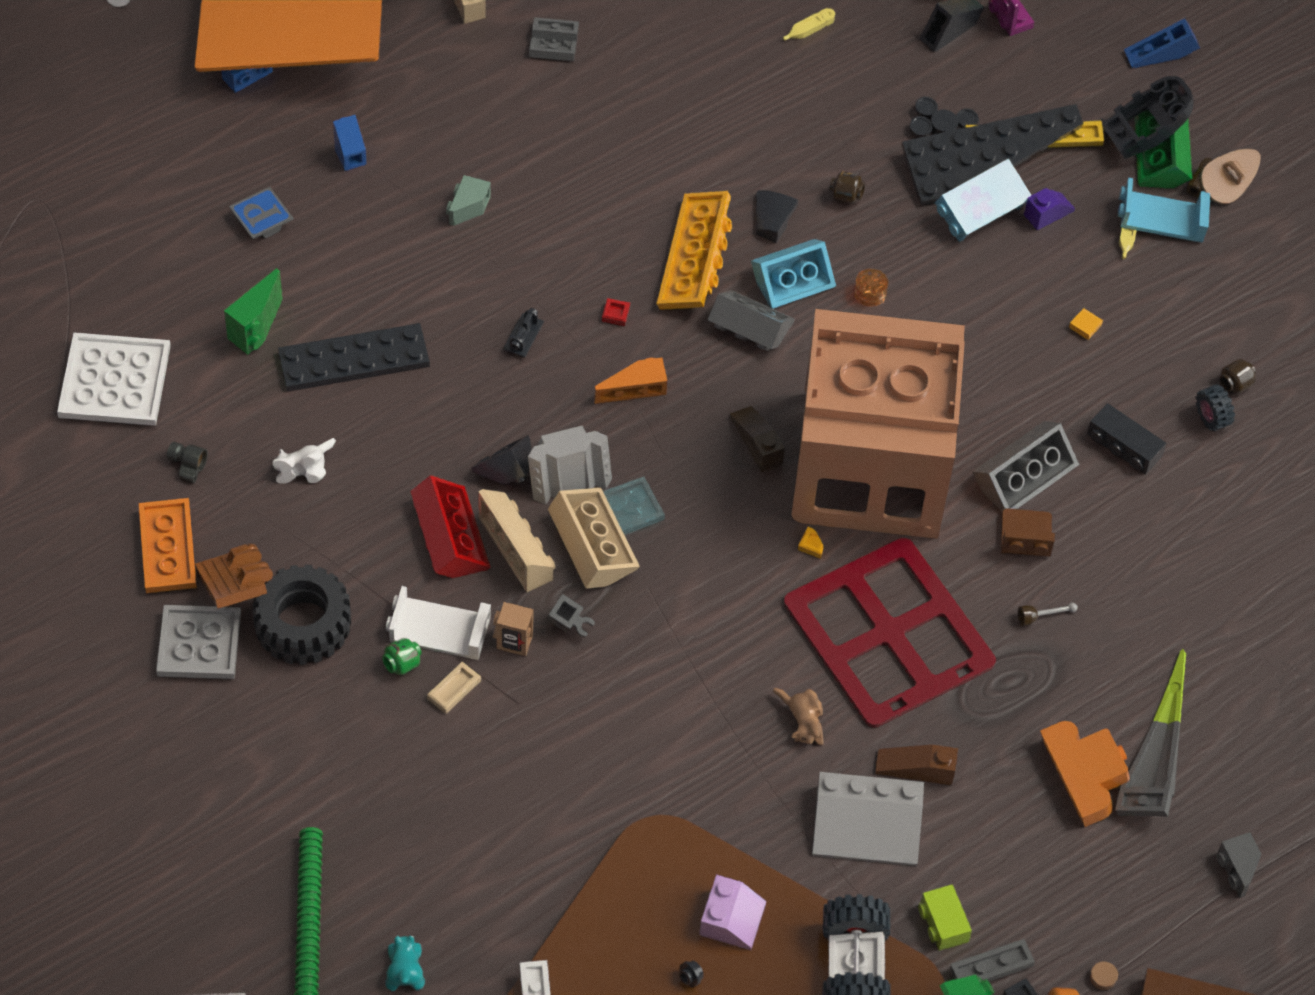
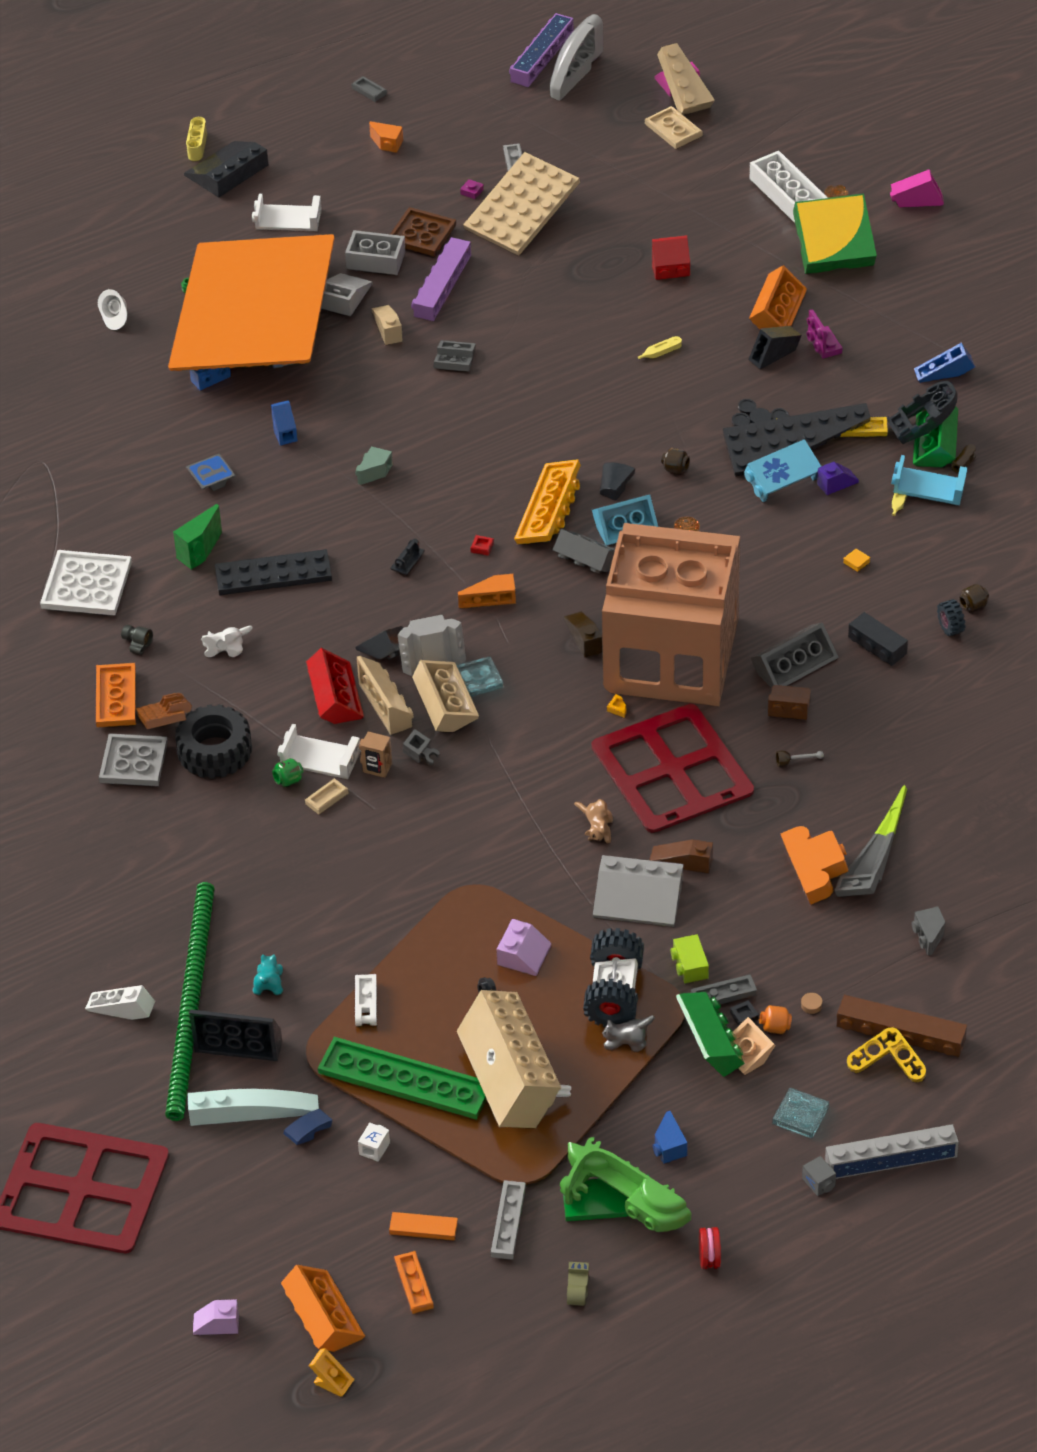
camera: 10 degrees right, 10 degrees down
(1230, 175) = (987, 457): medium nougat shield -> none

